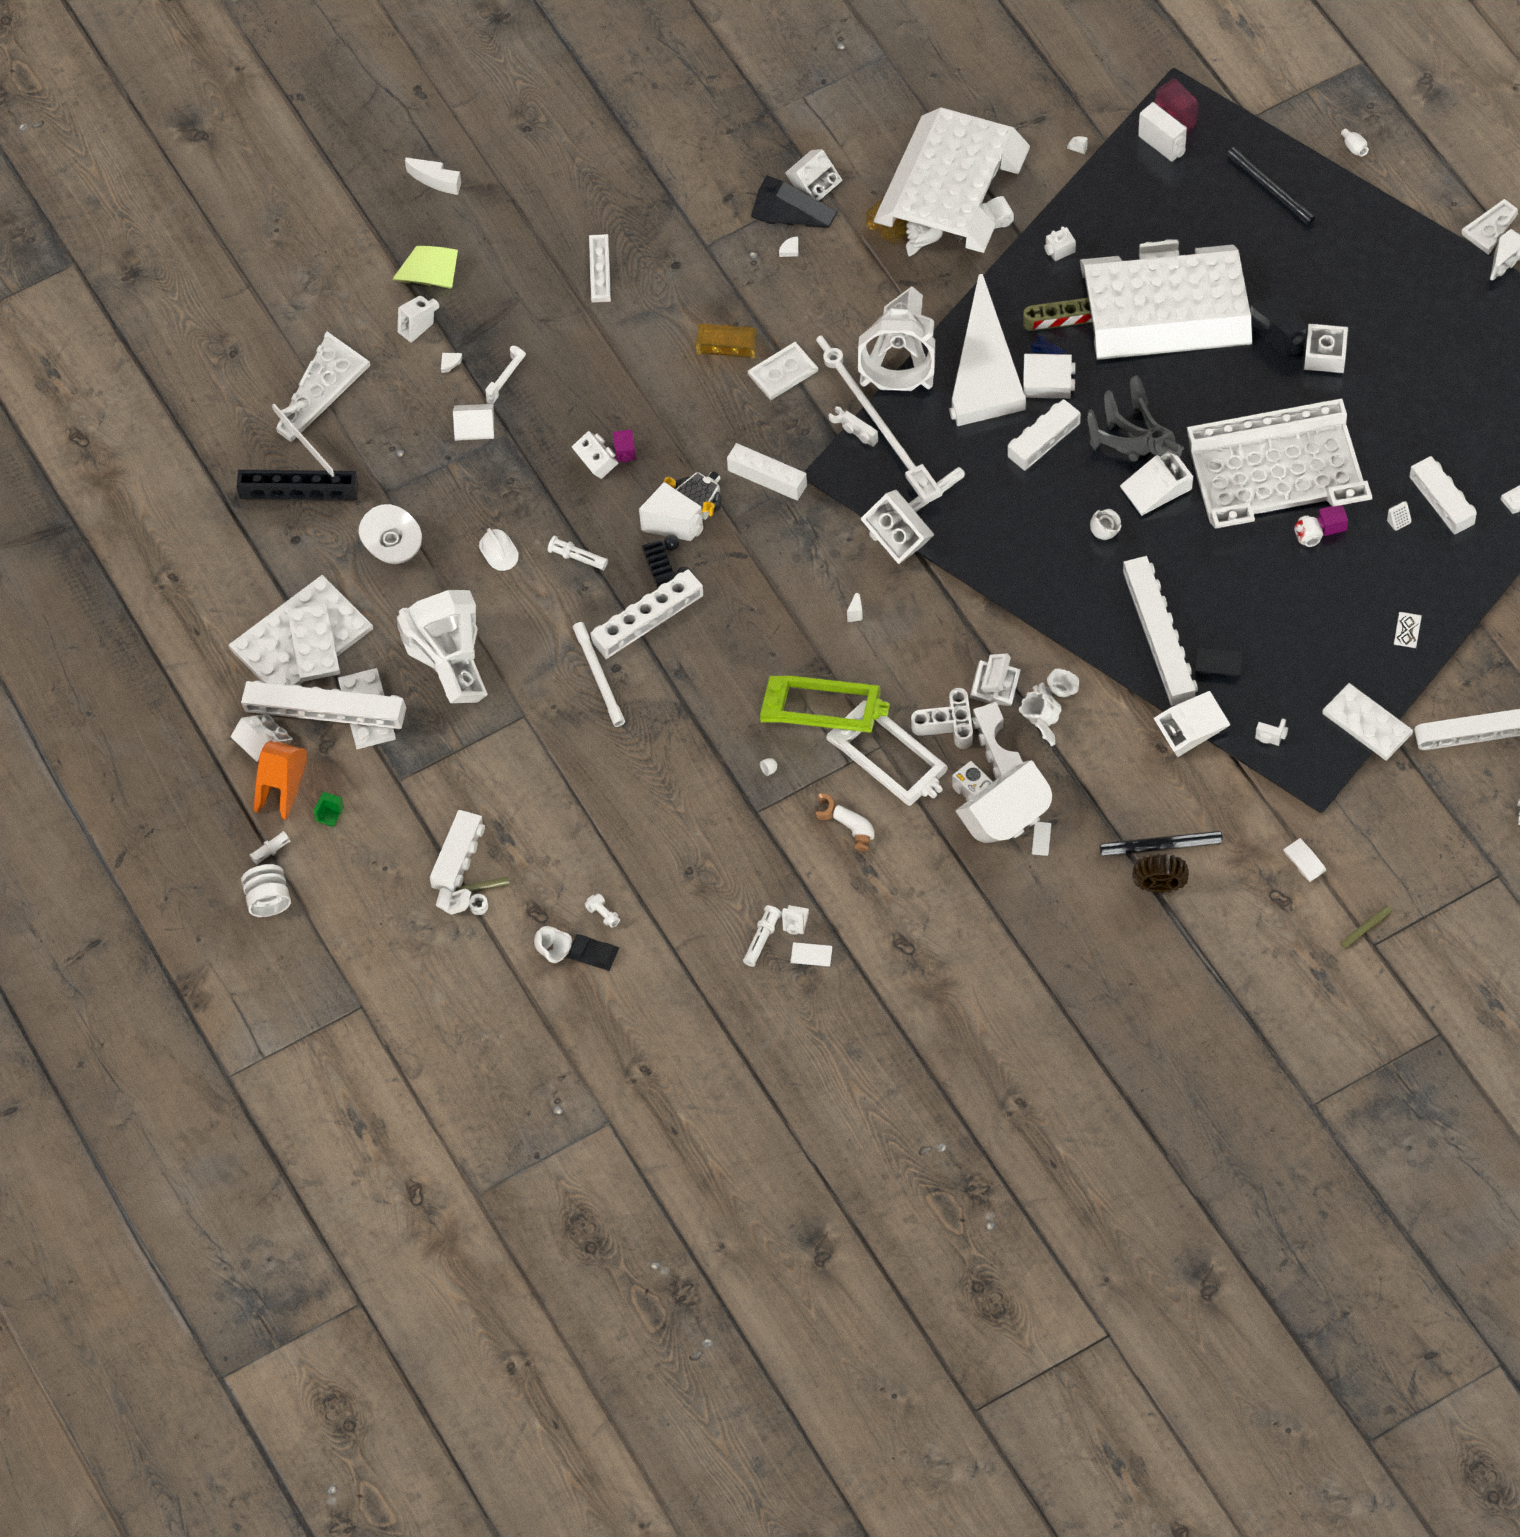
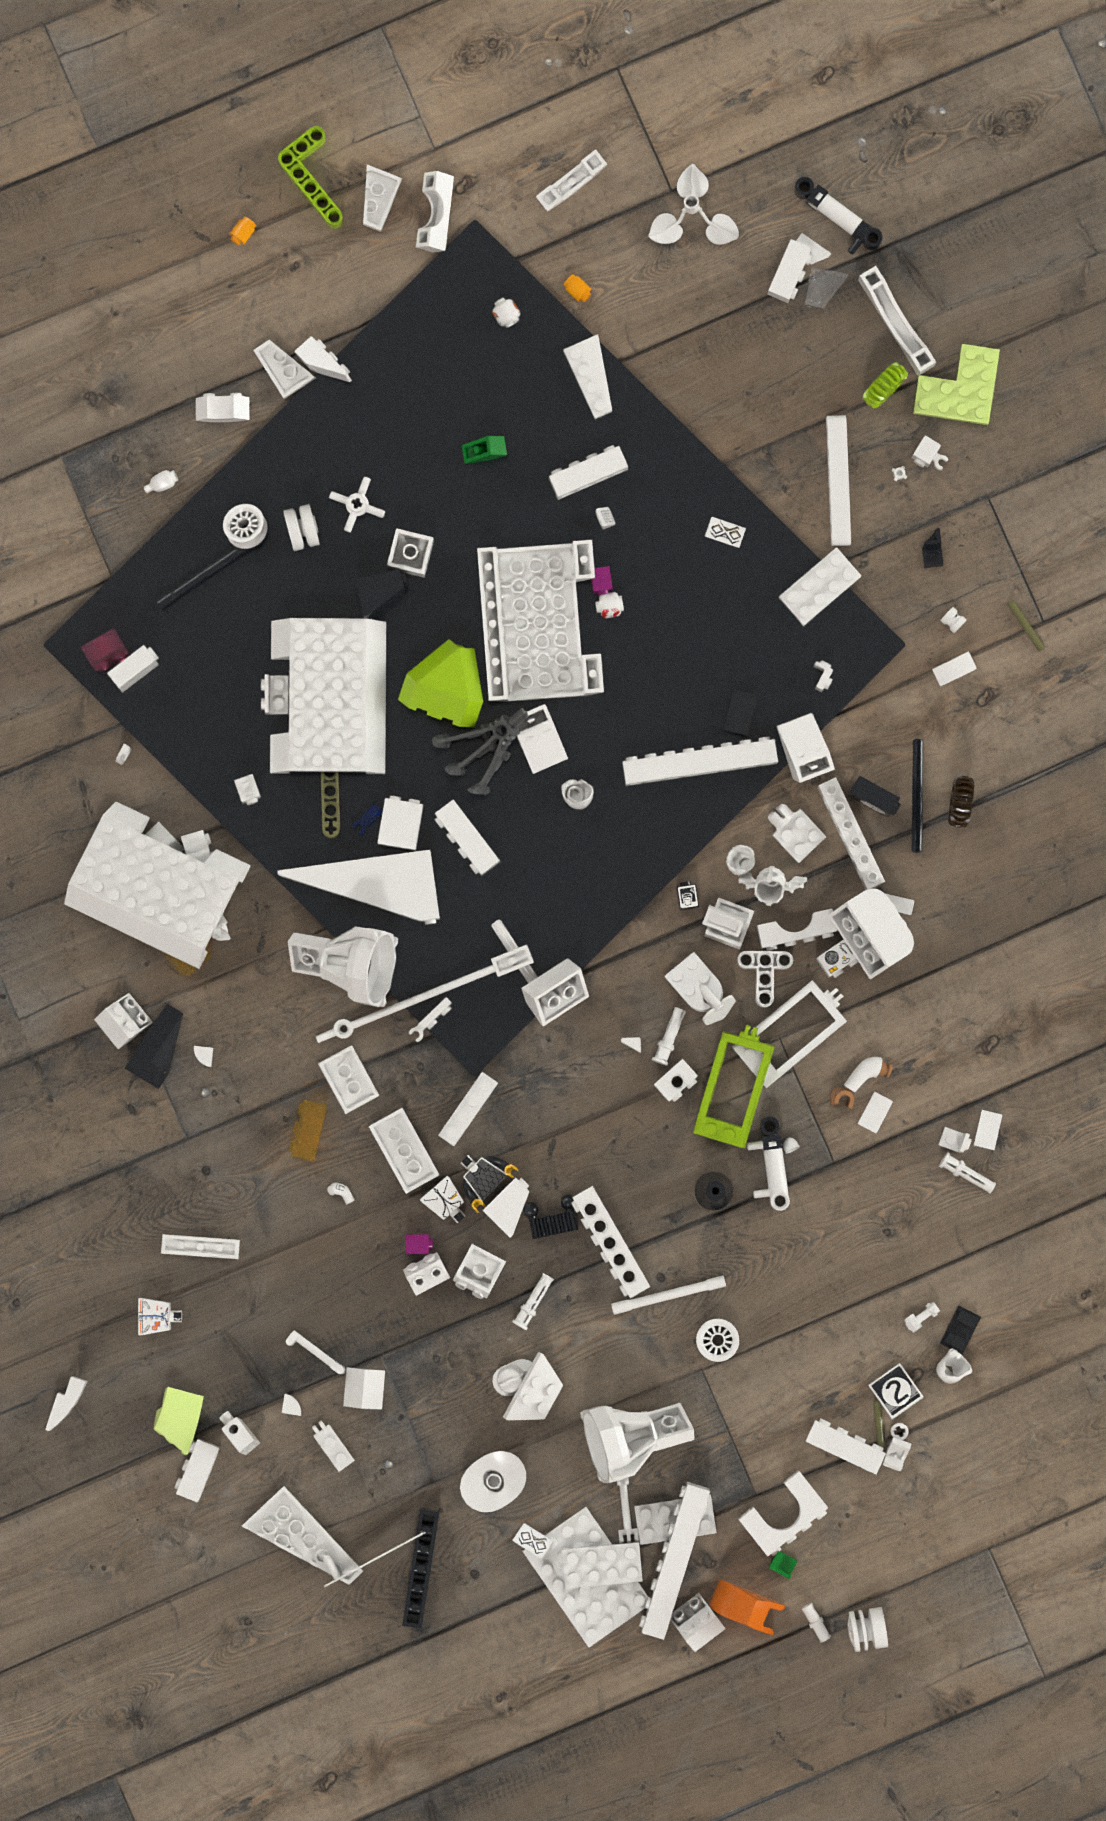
camera: 90 degrees left, 25 degrees up
(333, 581) = (532, 1541): none -> white sticker
(348, 668) = (628, 1530): none -> white hinge
(378, 289) = (197, 1469): none -> white brick
(390, 826) = (810, 1507): none -> white arch
(413, 401) = (332, 1446): none -> white hinge
(484, 564) = (535, 1392): none -> white wing
(520, 894) = (896, 1391): none -> slope
(526, 236) = (155, 1316): none -> white torso
(564, 731) = (728, 1327): none -> white wheel
(602, 500) = (478, 1271): none -> white plate
(670, 377) = (341, 1189): none -> white arm
(672, 462) = (445, 1200): none -> white torso
(711, 699) = (704, 1193): none -> black cone
(717, 424) = (404, 1150): none -> white plate
(747, 752) = (774, 1164): none -> white piece
(815, 844) = (875, 1112): none -> white sticker
(818, 642) = (681, 1070): none -> white brick
(858, 640) = (666, 1045): none -> white pin
(918, 661) = (696, 983): none -> white plate
(999, 187) = (160, 834): none -> white slope
(1016, 640) = (687, 896): none -> black brick
(1101, 731) = (795, 832): none -> white plate
(1108, 781) = (850, 834): none -> white brick
(1151, 793) = (874, 797): none -> black brick
(1195, 392) = (445, 685): none -> lime panel
(1324, 208) = (241, 516): none -> white wheel
(1332, 251) = (301, 527): none -> white wheel
(1357, 852) = (953, 620): none -> white wheel
(1366, 300) = (360, 496): none -> white bar
(1429, 827) = (932, 551): none -> black slope
(1439, 180) = (222, 408): none -> white brick
(1447, 402) = (484, 449): none -> green slope
(1506, 786) = (899, 473): none -> white piece

